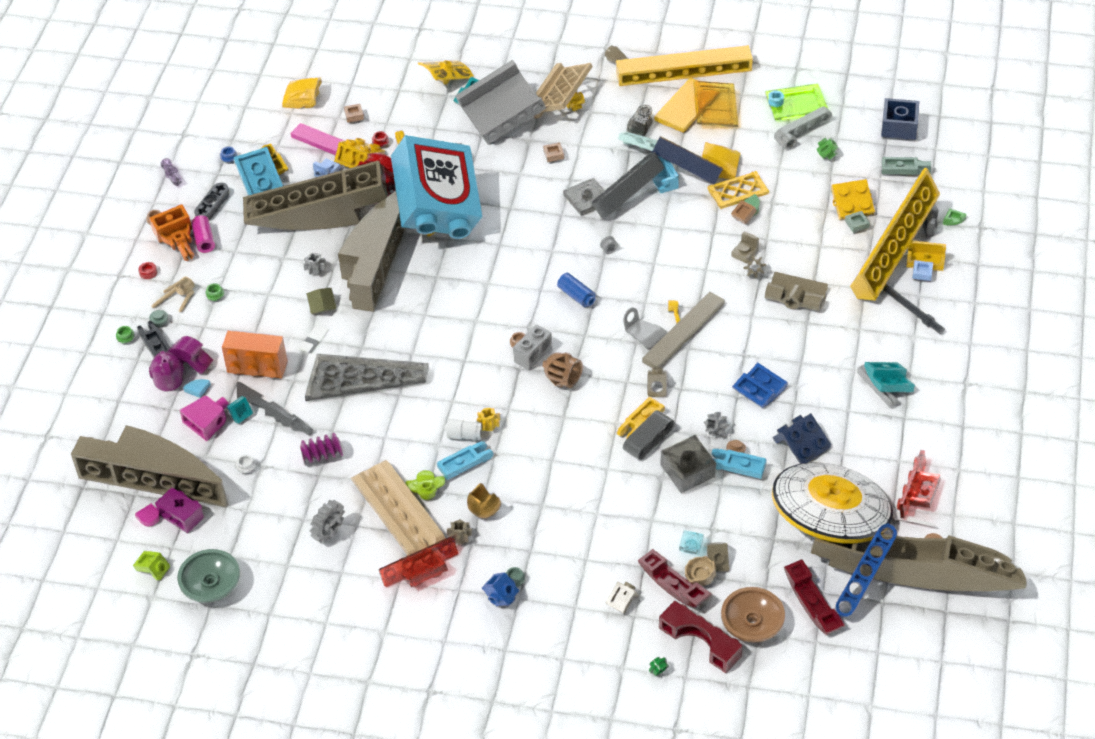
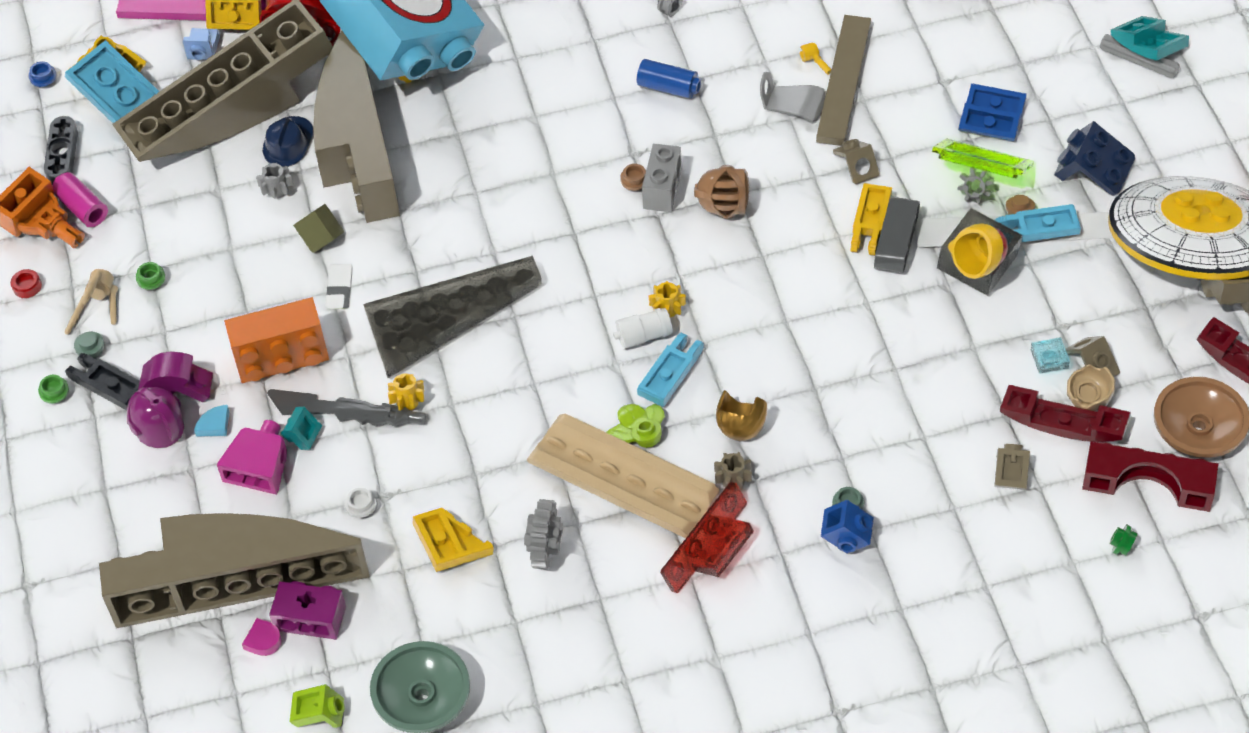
camera: 25 degrees left, 5 degrees up
(279, 504) = (448, 540): none -> yellow wing
(308, 412) = (406, 391): none -> yellow gear
(320, 448) = (458, 433): magenta piece -> none
(333, 242) = (287, 140): none -> dark blue piece
(678, 460) = (978, 250): none -> yellow piece
(729, 409) = (982, 158): none -> clear neon green piece

